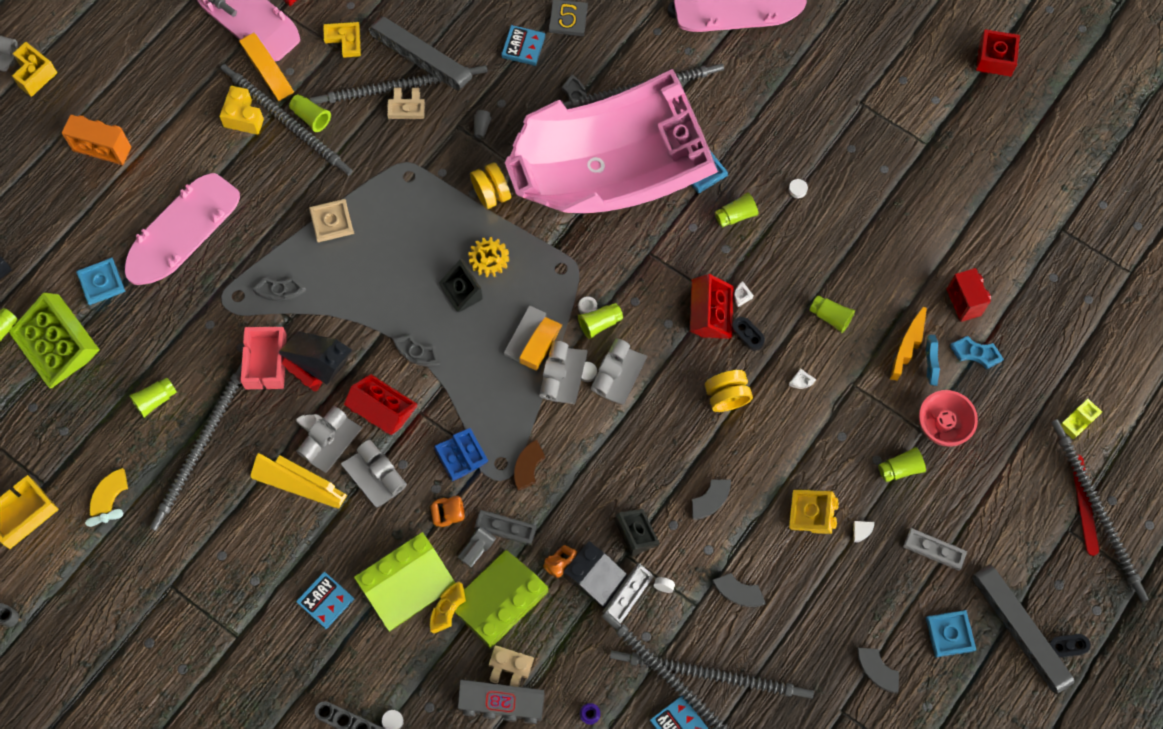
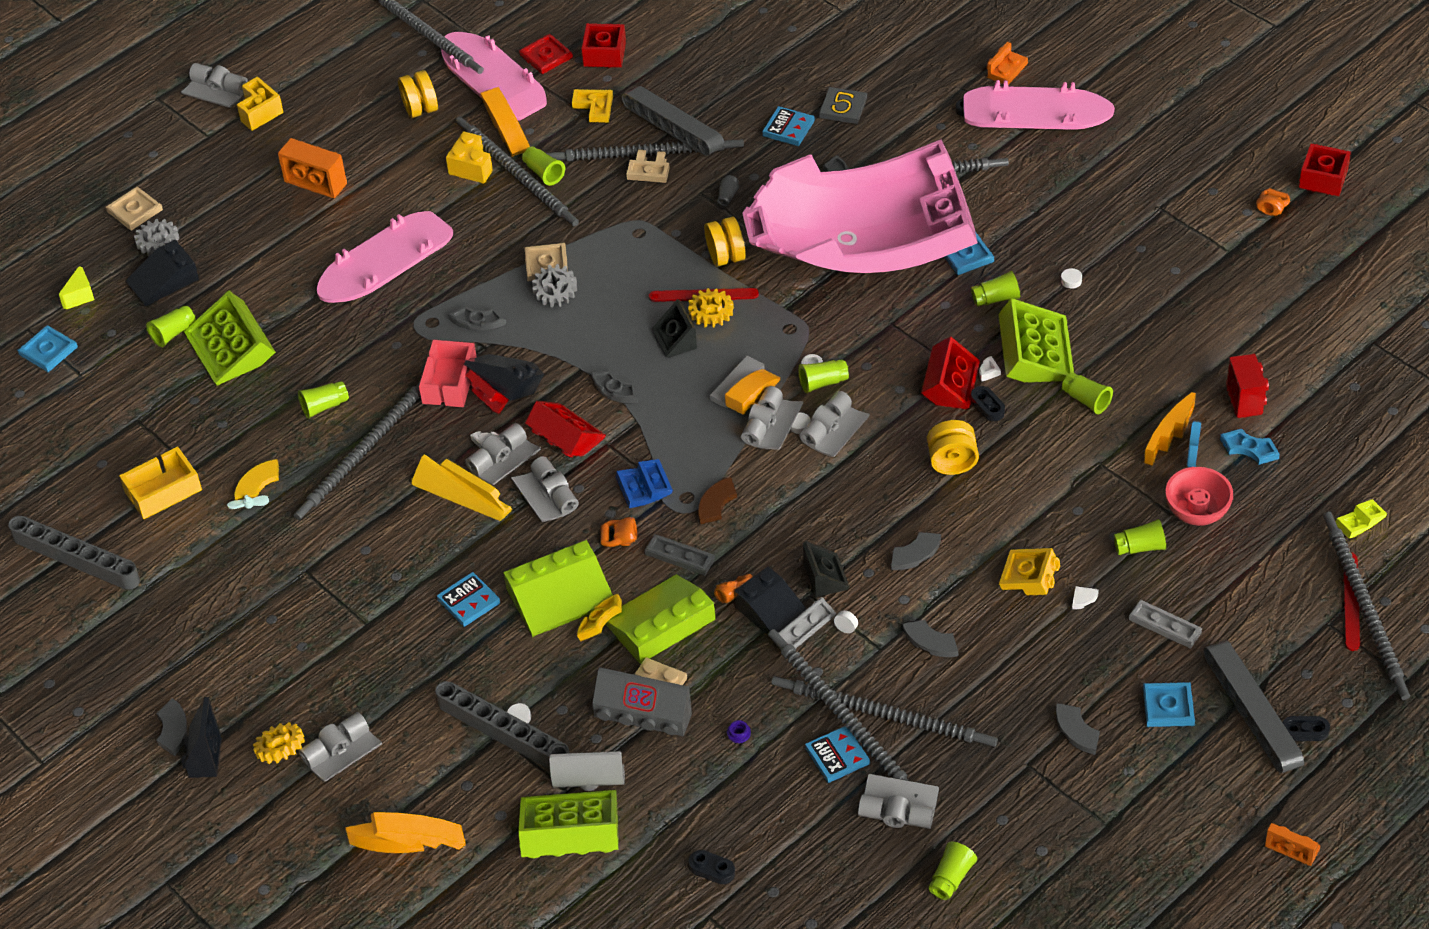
camera: 15 degrees right, 20 degrees down
(100, 281) = (289, 296): dark azure tile -> none
(181, 45) = (417, 94): none -> yellow wheel
(350, 246) = (563, 280): none -> light grey gear
(468, 241) = (686, 295): none -> red piece
(479, 543) = (647, 561): dark grey piece -> none
(779, 265) = (1034, 343): none -> lime slope
(802, 380) = (1041, 453): white tile -> none
(956, 92) = (1272, 202): none -> orange piece

